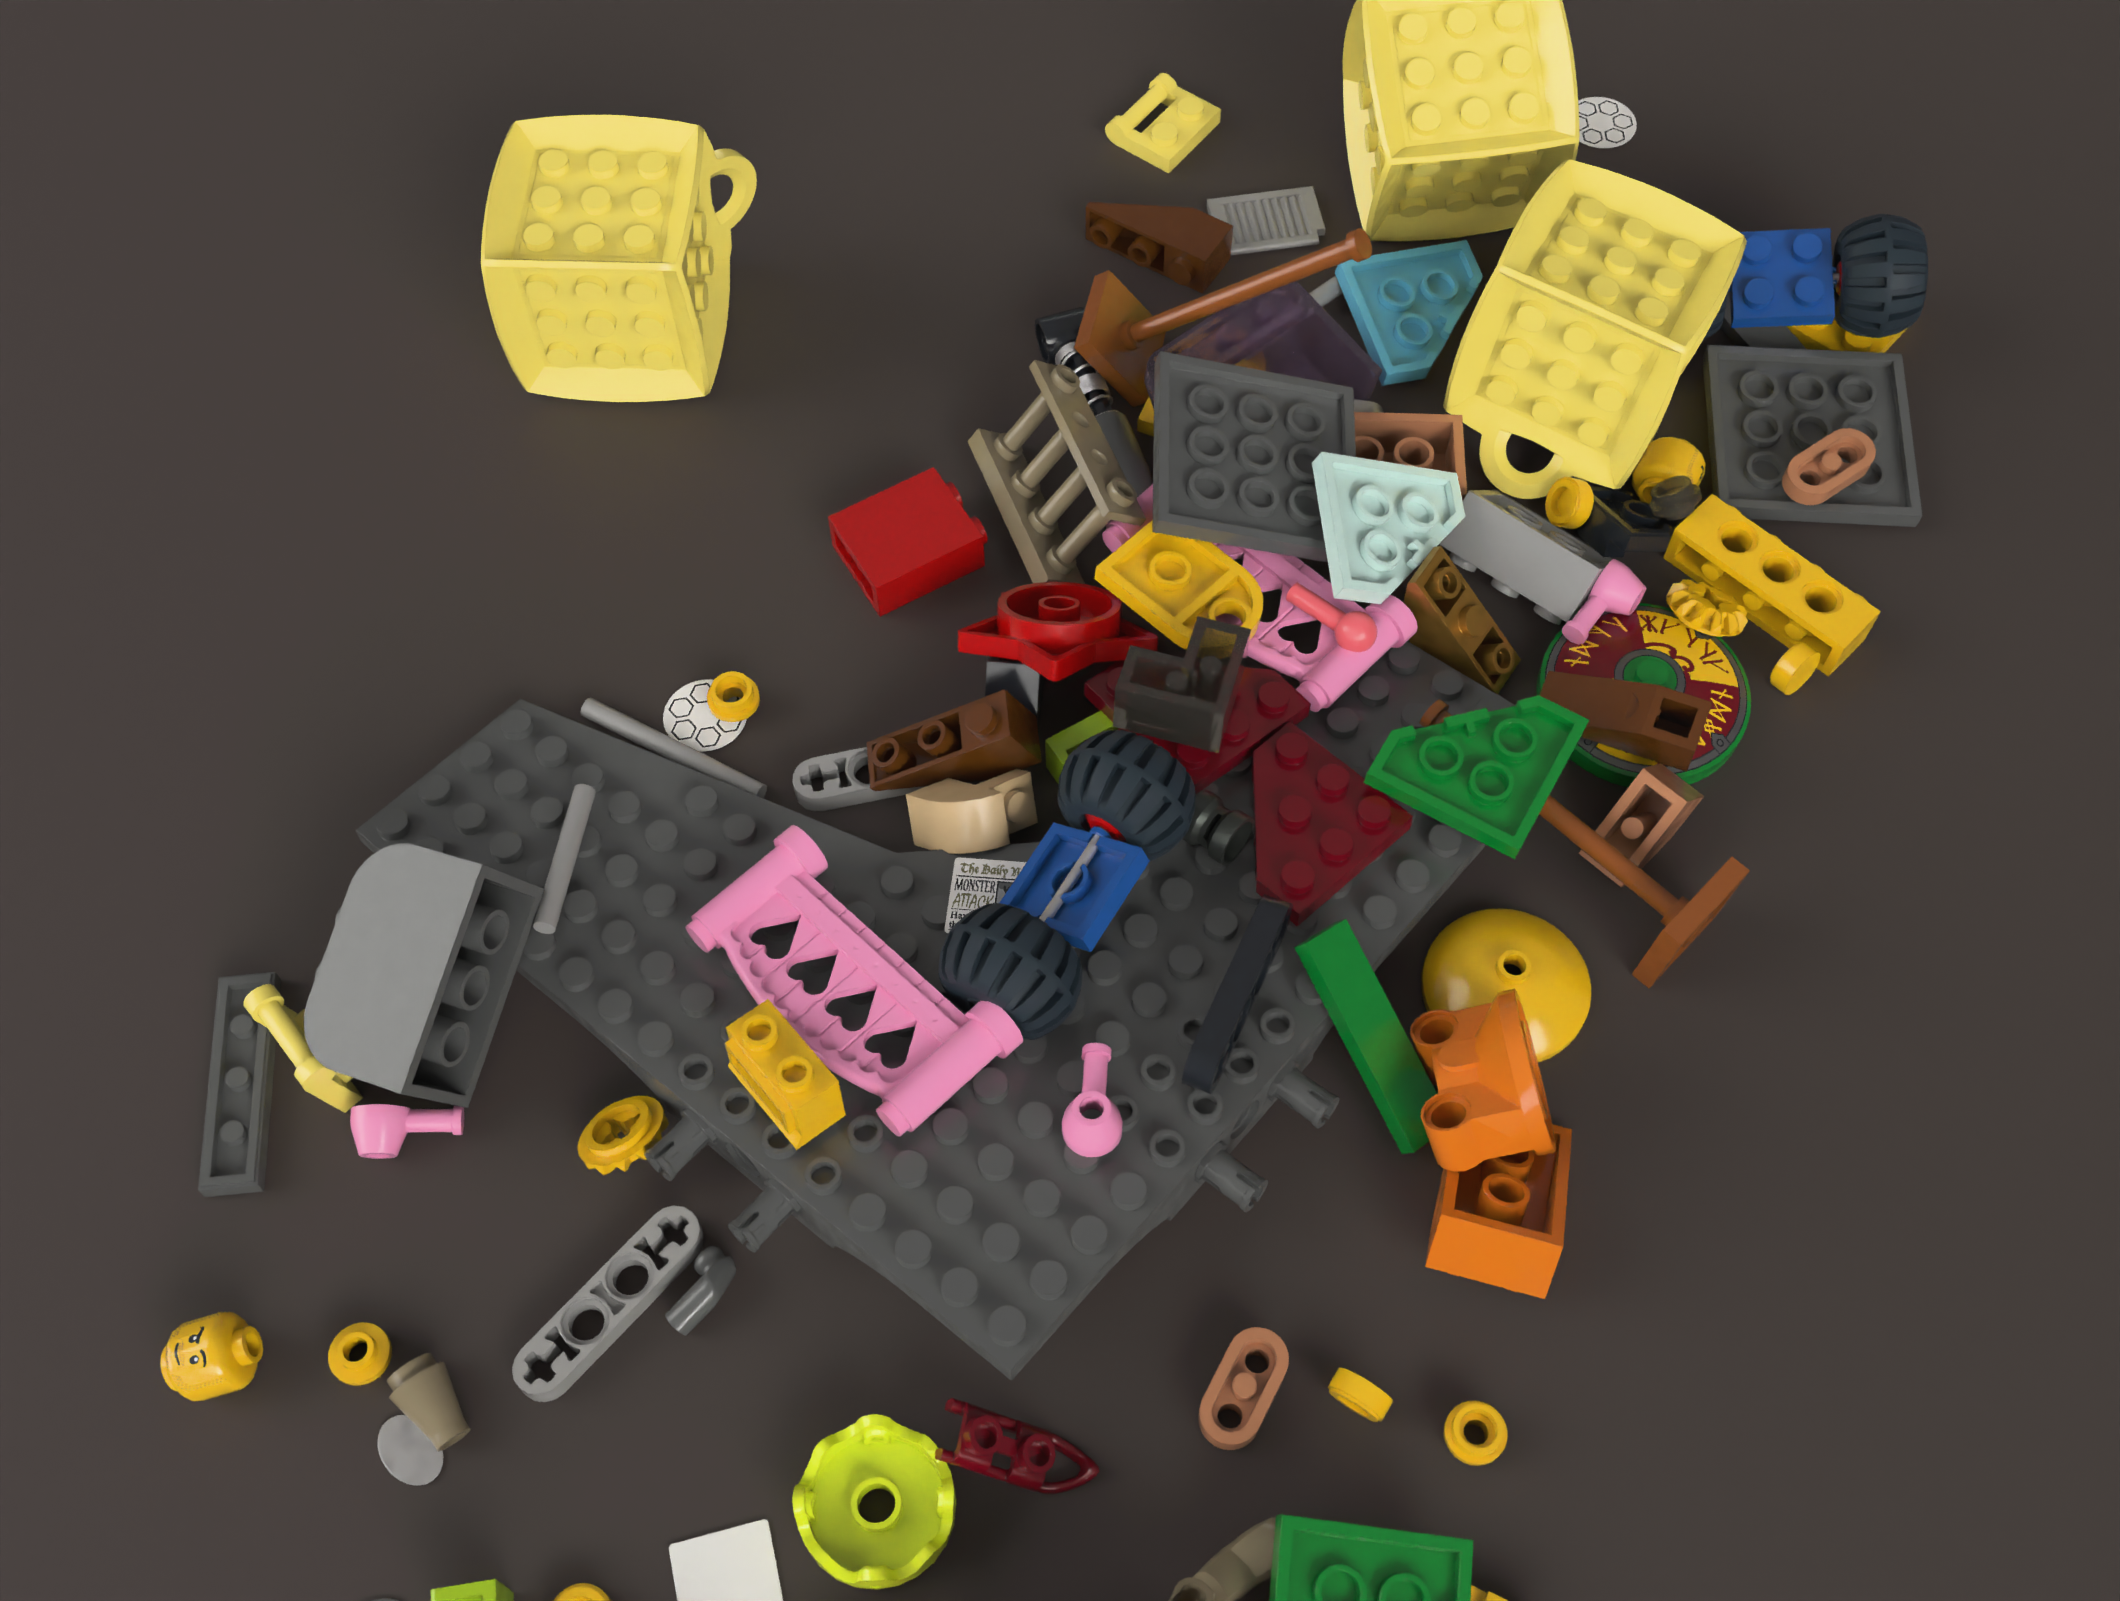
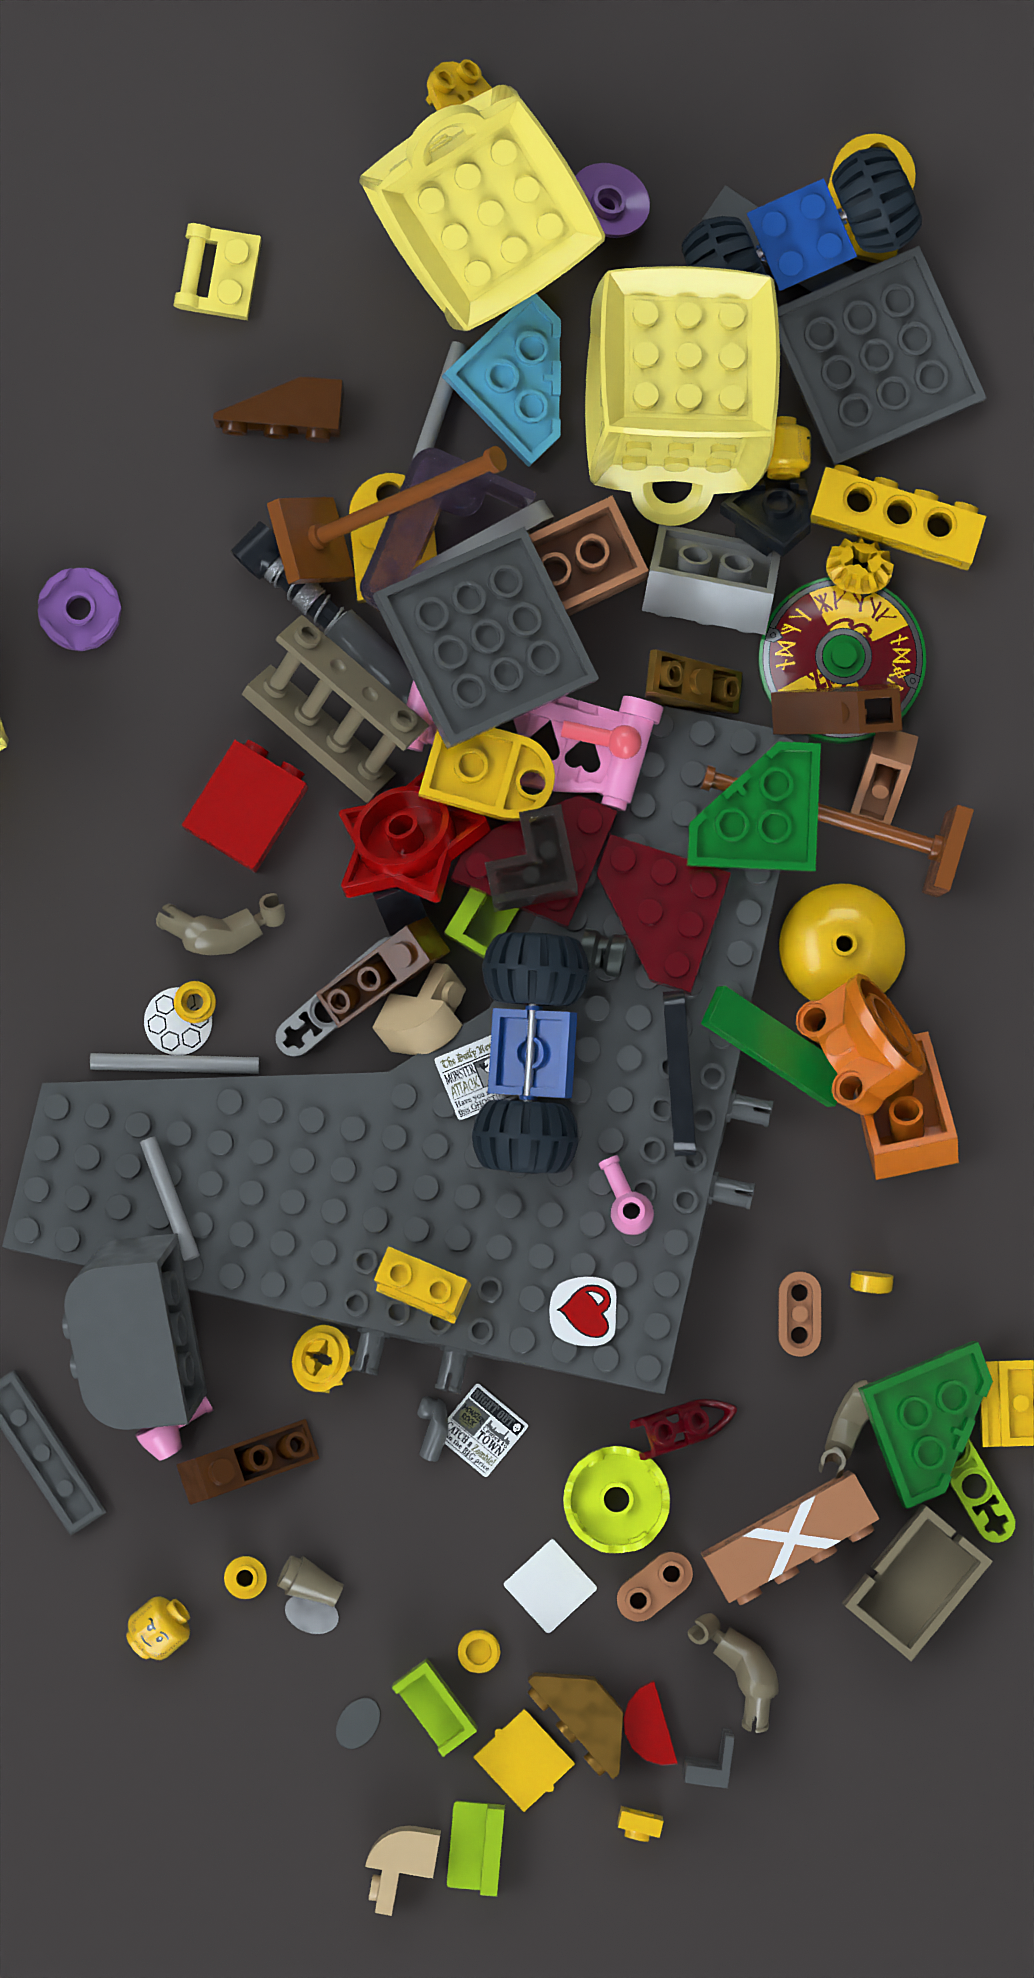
camera: 25 degrees left, 25 degrees up
(287, 1027) = (67, 1407): light yellow plate -> none
(456, 1210) = (247, 1461): none -> reddish brown slope
(602, 1295) = (375, 1464): light grey beam -> none
(762, 1330) = (483, 1430): none -> sticker
(795, 641) = (221, 936): none -> dark tan arm
(859, 338) = (84, 633): none -> medium lavender tile
(945, 1043) = (338, 1153): bright pink piece -> none
(965, 1213) = (584, 1311): none -> sticker
(1270, 219) = (355, 335): light grey window -> none
(1381, 521) = (604, 646): light aqua plate -> none
(1488, 1420) = (964, 1266): yellow plate -> none
(1569, 503) = (721, 520): yellow tile -> none
(1605, 122) = (581, 79): white sticker -> none
(1614, 592) = (790, 593): bright pink bar -> none
(1674, 498) = (800, 487): clear smoke plate -> none
(1794, 668) = (941, 586): yellow tile -> none
(1824, 468) = (901, 397): nougat plate -> none

